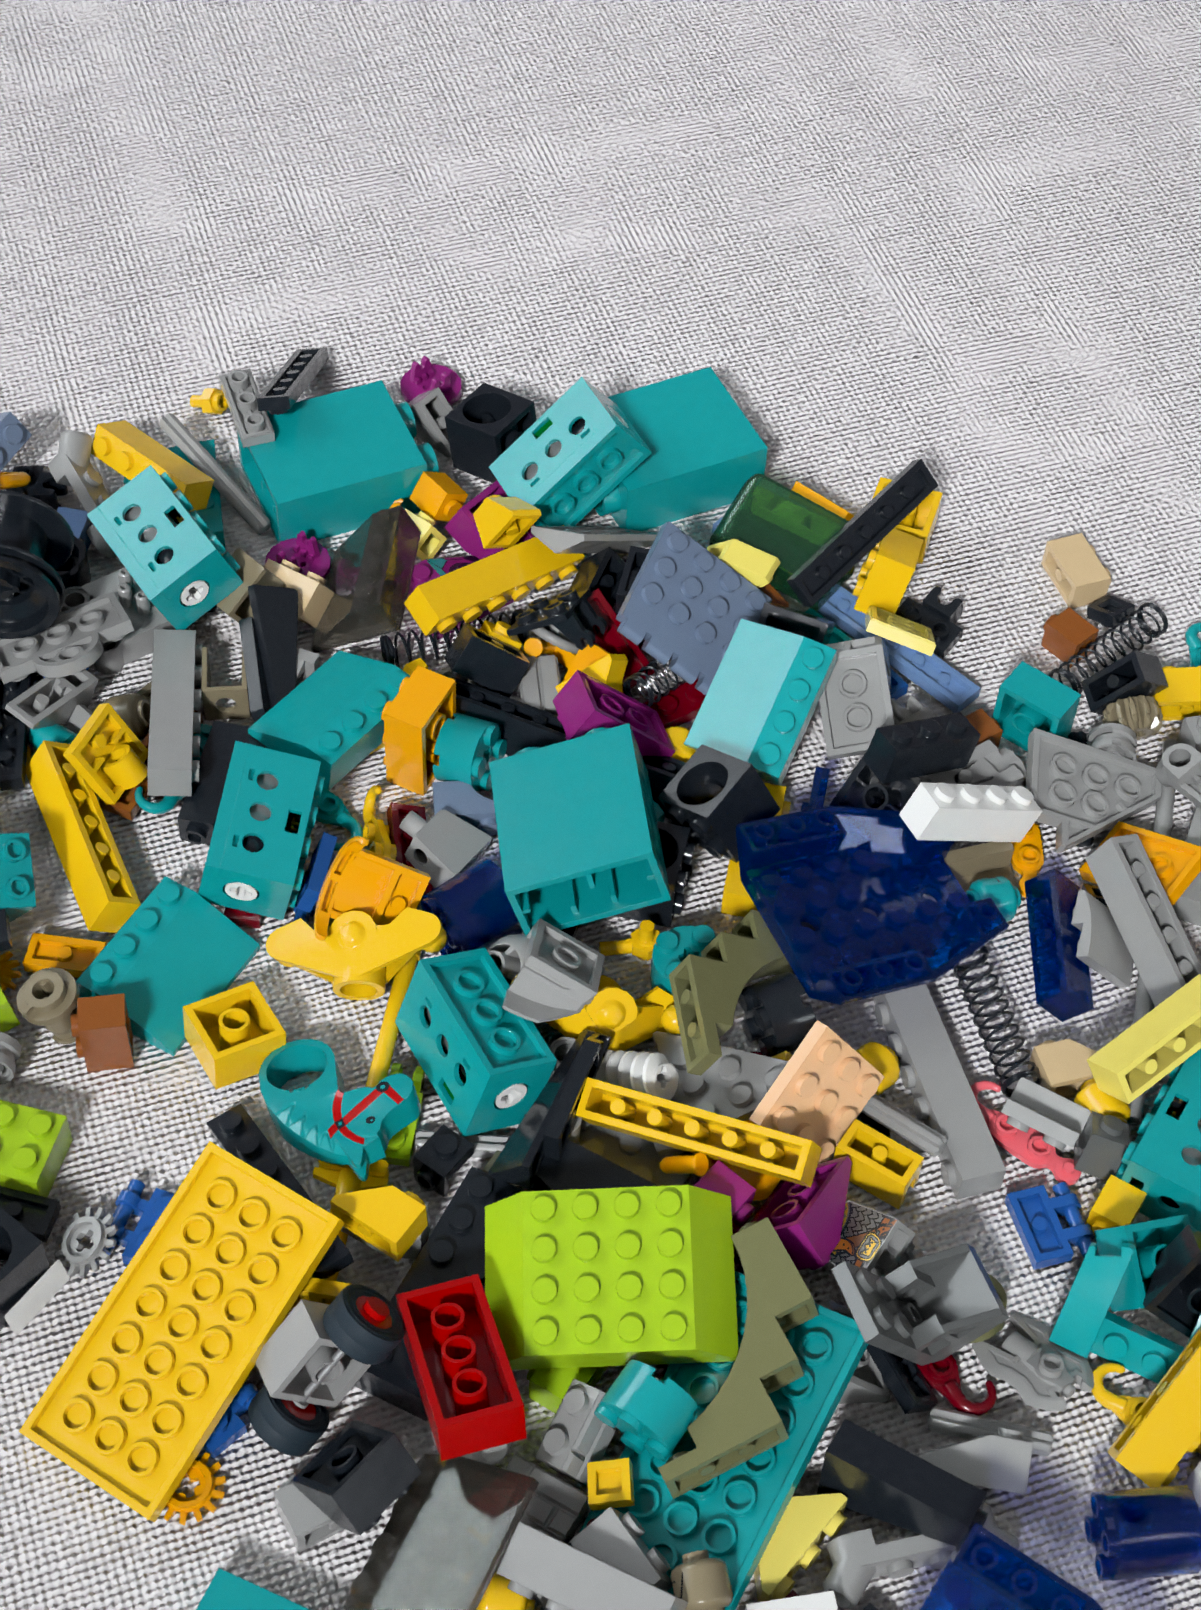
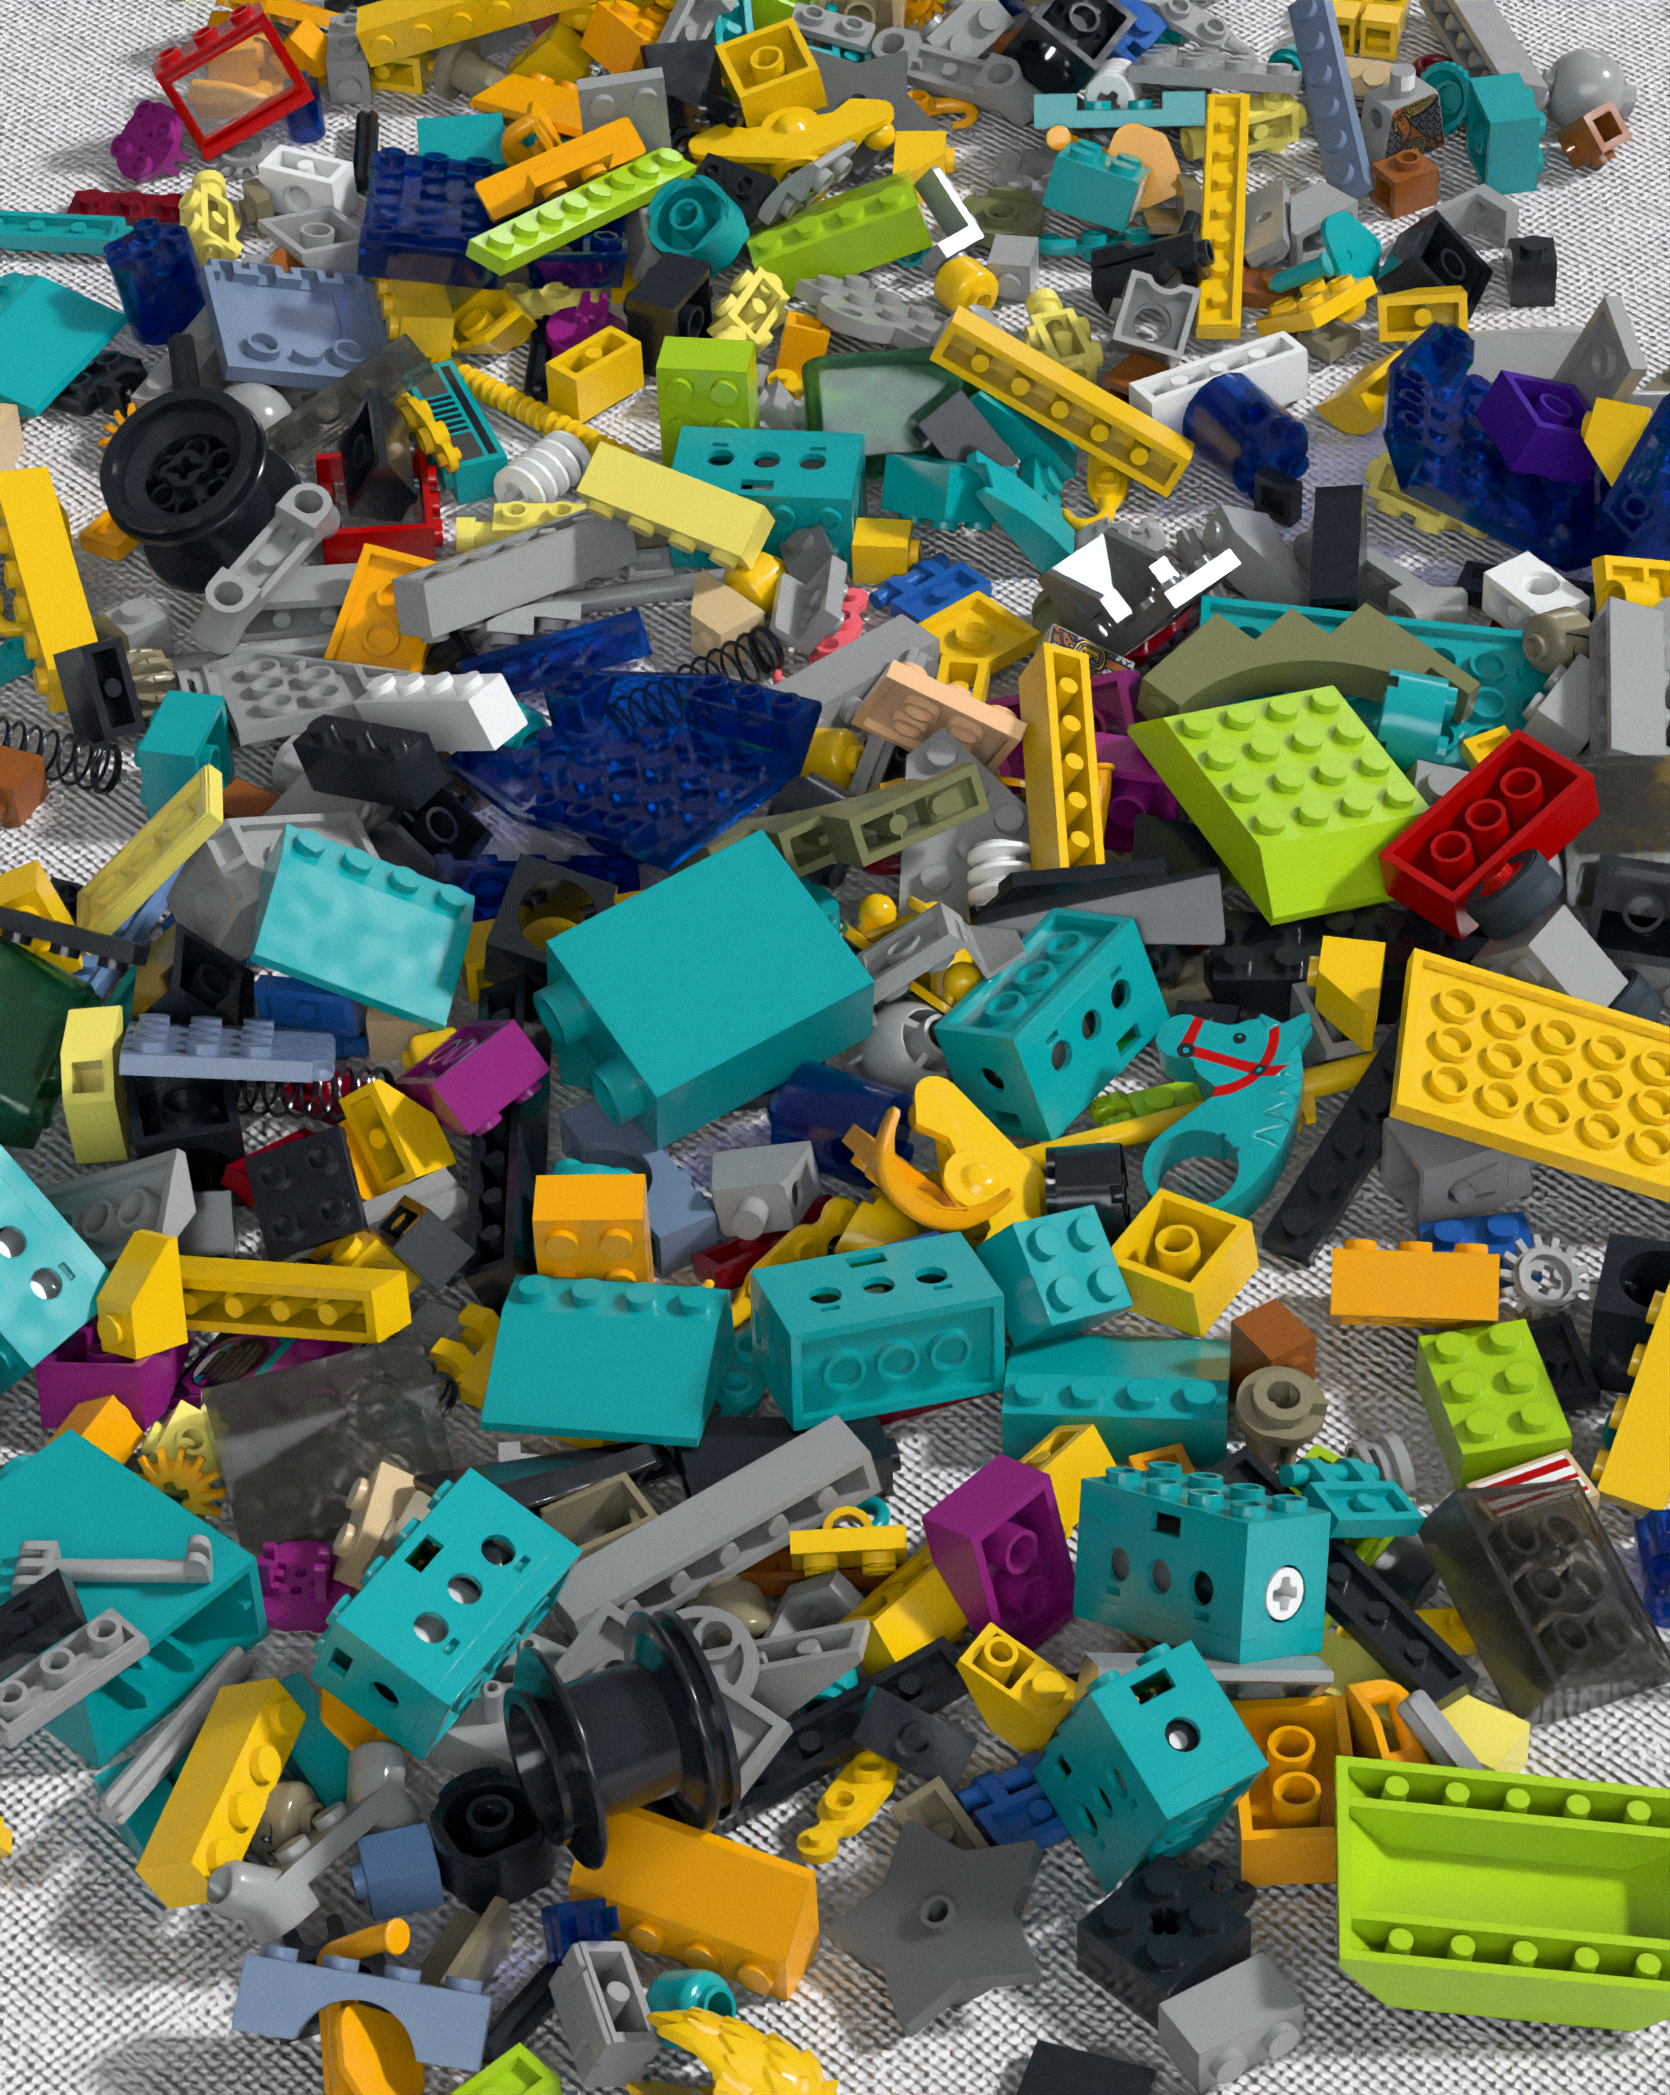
camera: 110 degrees left, 10 degrees down
(48, 810) = (1005, 1551): none -> magenta slope
(107, 1136) = (1414, 1285): none -> light orange brick
(252, 944) = (1055, 1275): none -> teal brick
(320, 423) = (43, 1557): none -> light grey hinge
(322, 1007) = (1087, 1177): none -> black brick
(981, 1219) = (982, 630): none -> yellow plate
(1067, 1535) = (1278, 496): none -> black plate

